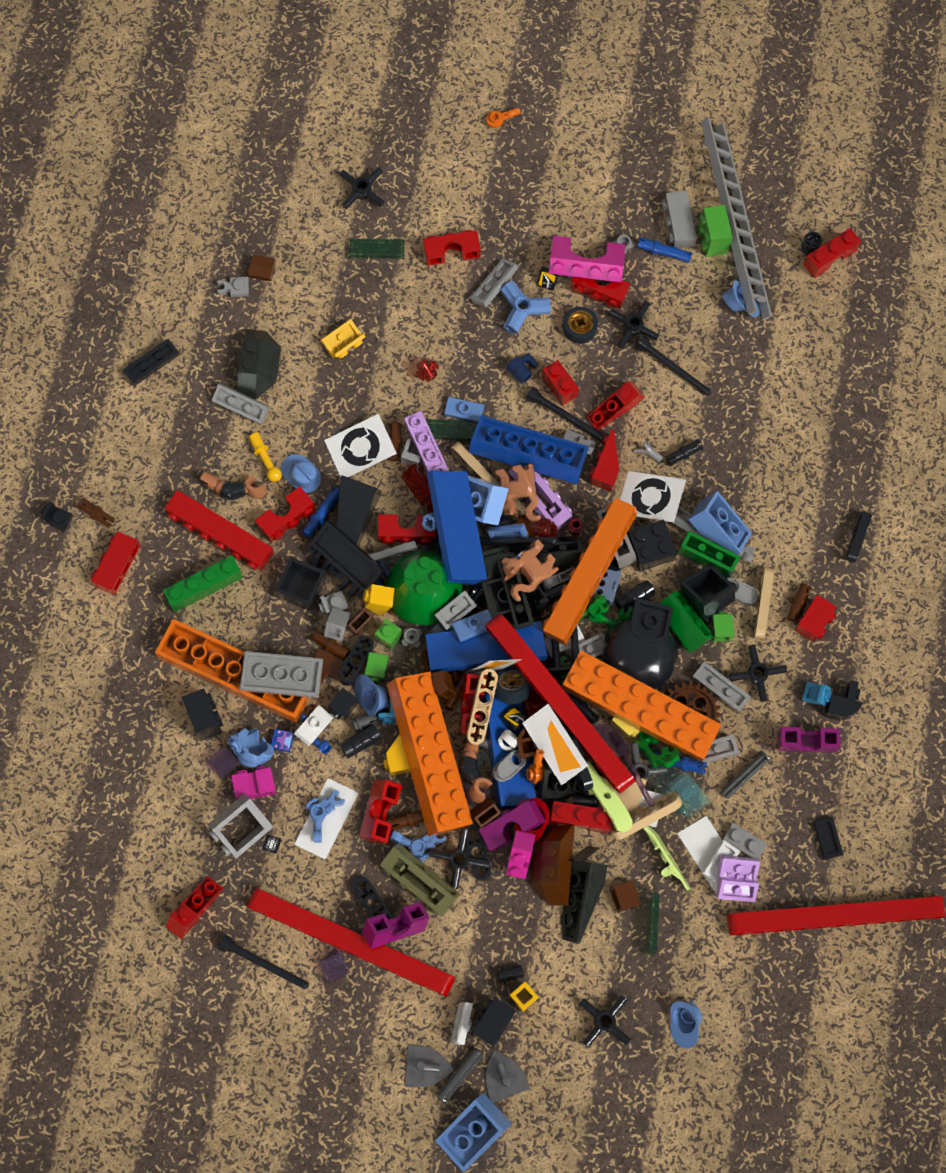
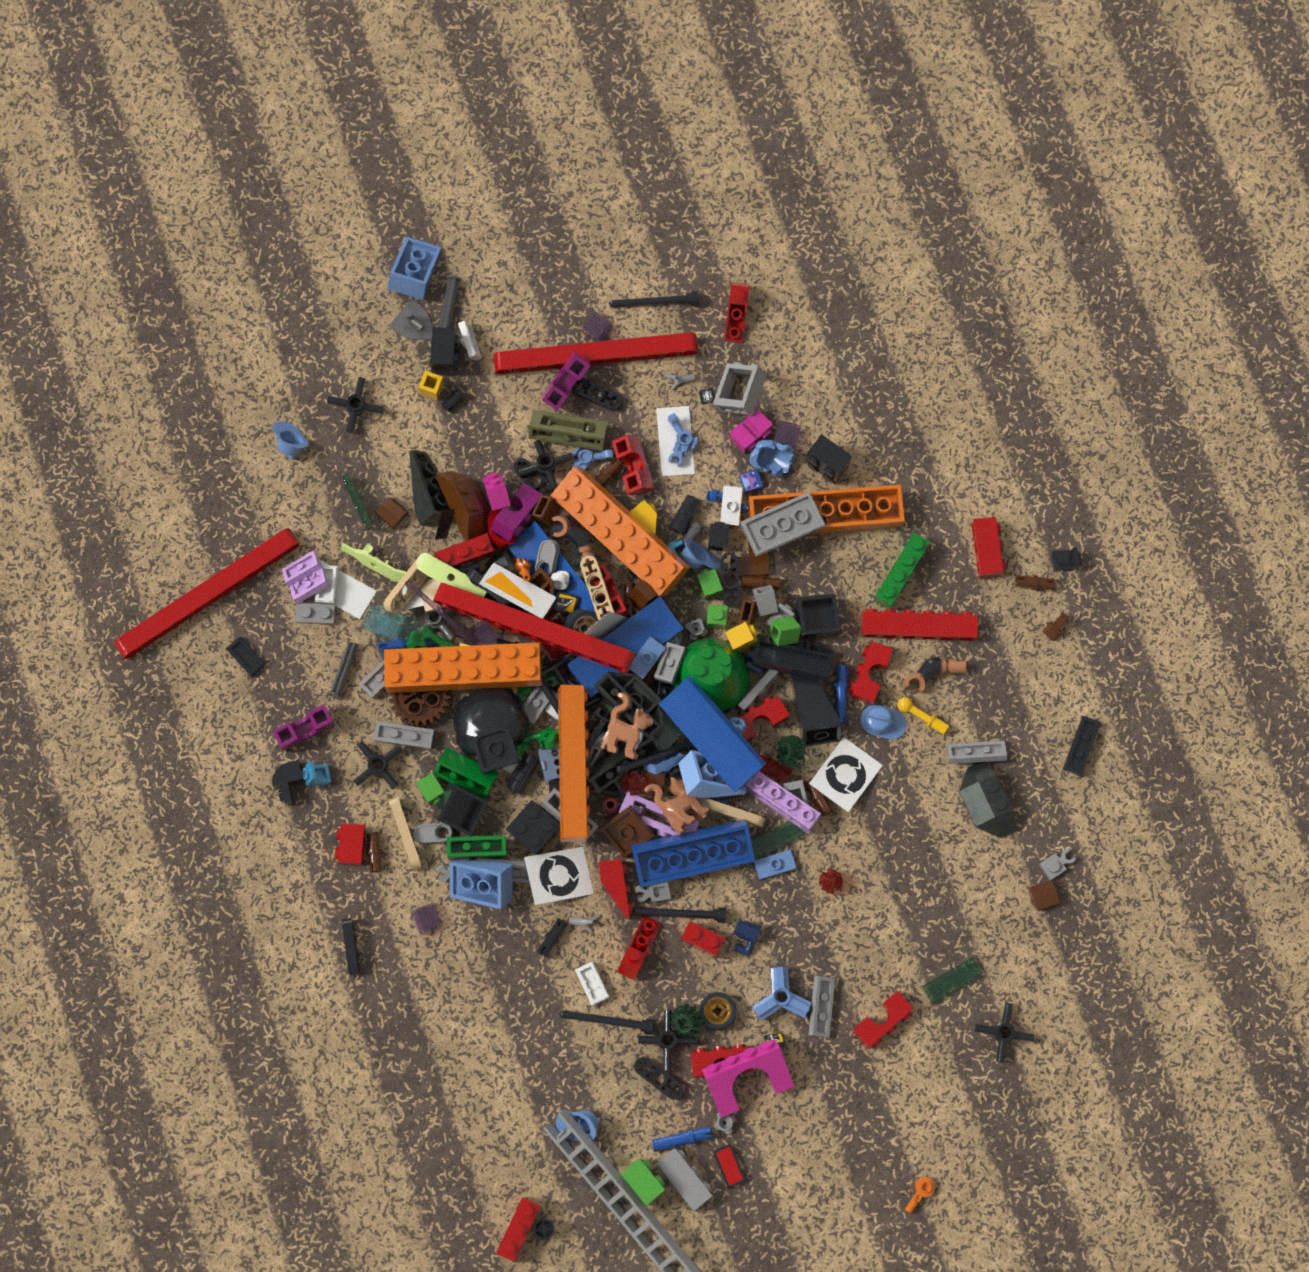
camera: 150 degrees right, 5 degrees up
(106, 466) = (1053, 630): none -> reddish brown piece
(288, 873) = (680, 379): none -> light grey bar
(337, 585) = (785, 631): none -> bright green brick
(342, 339) = (924, 867): yellow bracket -> none
(395, 485) = (791, 751): none -> clear green gear
(425, 1067) = (480, 296): flat silver shield -> none
(573, 498) = (625, 830): none -> reddish brown tile
(610, 327) = (687, 1020): none -> clear green gear
(638, 213) = (729, 1166): none -> red tile
(658, 295) = (658, 1070): none -> black beam
(670, 400) = (592, 983): none -> white plate
(782, 524) = (426, 918): none -> clear purple piece

